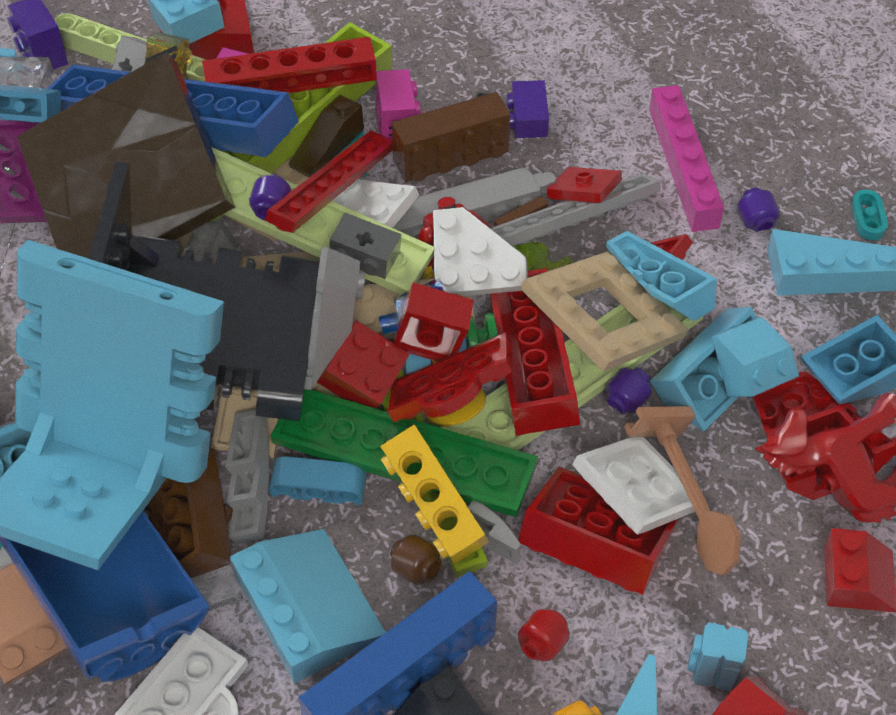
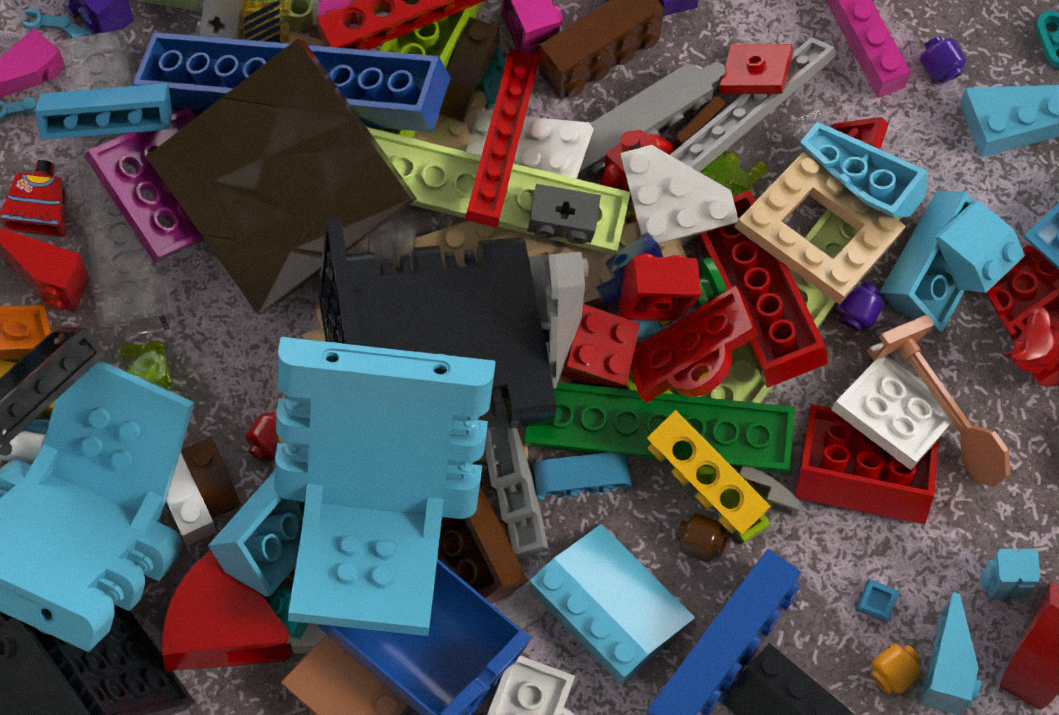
camera: 15 degrees left, 15 degrees up
(266, 193) = (450, 179): dark purple head -> none
(544, 634) = (844, 585): red head -> none
(576, 658) = (877, 600): none -> dark azure tile

